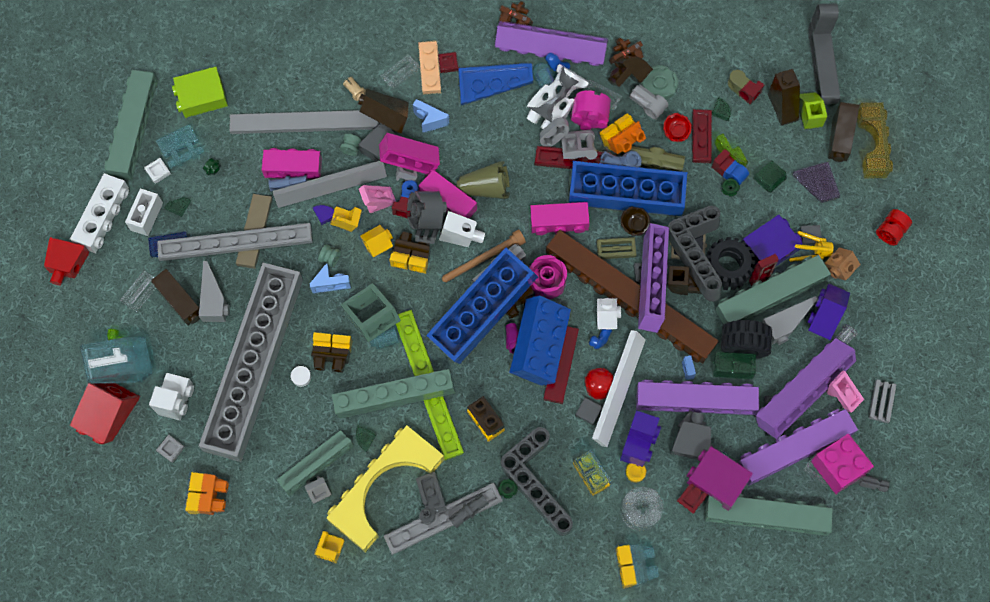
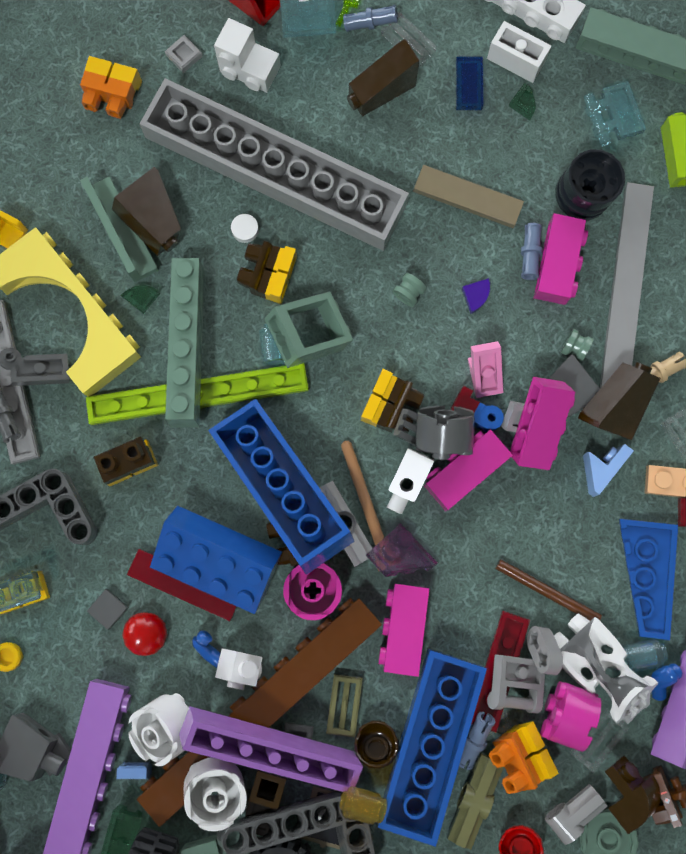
camera: 100 degrees right, 10 degrees up
(128, 317) = (370, 18): none -> sand blue pin
(157, 170) = (583, 81): white tile -> none
(211, 166) = (573, 149): dark green plate -> none
(212, 302) = (378, 127): light grey slope -> none
(234, 241) = (453, 168): light grey tile -> none
(238, 151) = (597, 173): none -> black wheel
(301, 440) = (148, 212): none -> dark brown slope
(317, 489) = (81, 225): light grey tile -> none
(325, 283) = (372, 278): light blue slope -> none
(329, 184) = (519, 305): light grey tile -> none
(346, 219) = (462, 320): yellow panel -> none
(377, 240) = (417, 357): yellow brick -> none
(486, 182) = (480, 531): olive cone -> none
(502, 488) = (21, 468): dark green plate -> none
(511, 228) = (400, 554): none -> clear purple wing
(511, 337) = (237, 522): magenta cone -> none
(516, 139) = (546, 590): none -> reddish brown bar
(618, 388) = (124, 656): white tile -> none
(631, 159) = (474, 761): sand blue tile -> none
(642, 434) = (41, 671): dark purple brick -> none
(657, 351) = (158, 728): none -> white brick
(673, 217) = (363, 805): none -> clear yellow brick
(688, 305) = (218, 810): none -> white brick

